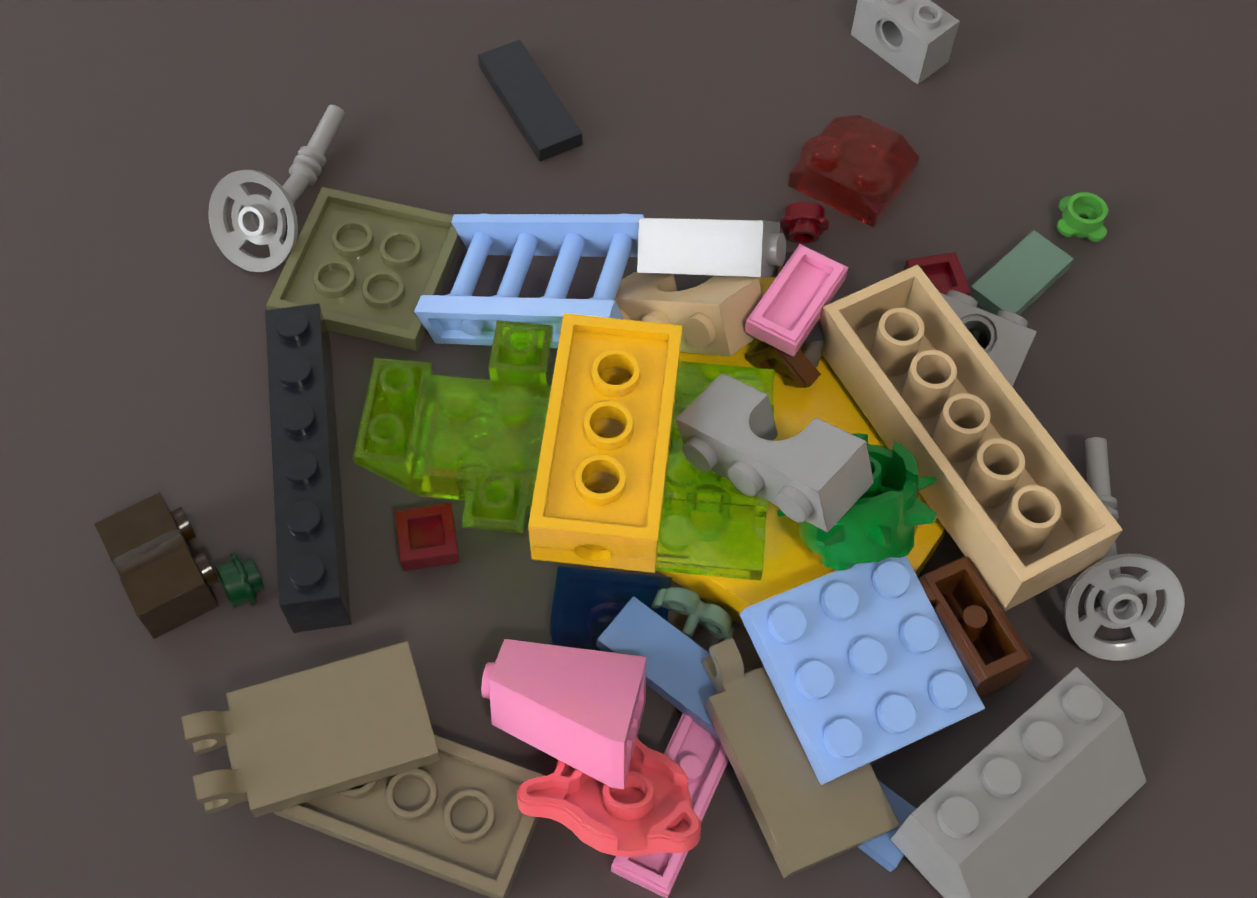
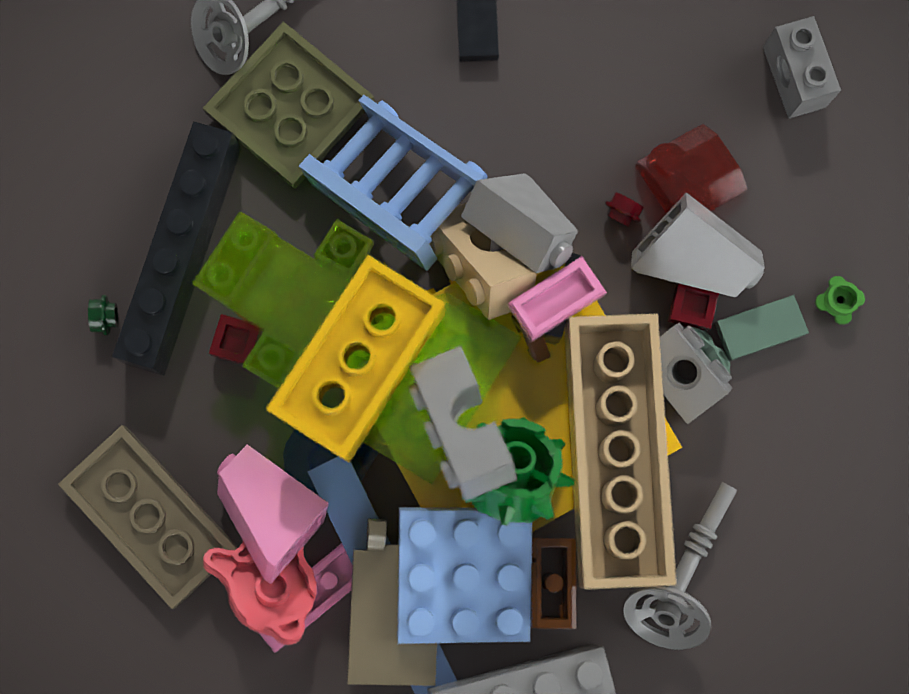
camera: 25 degrees right, 20 degrees up
(157, 564) = (54, 280): dark brown brick -> none
(315, 733) = (105, 451): dark tan tile -> none
(686, 602) = (385, 478): sand green piece -> none
(910, 219) = (698, 251): none -> light grey slope

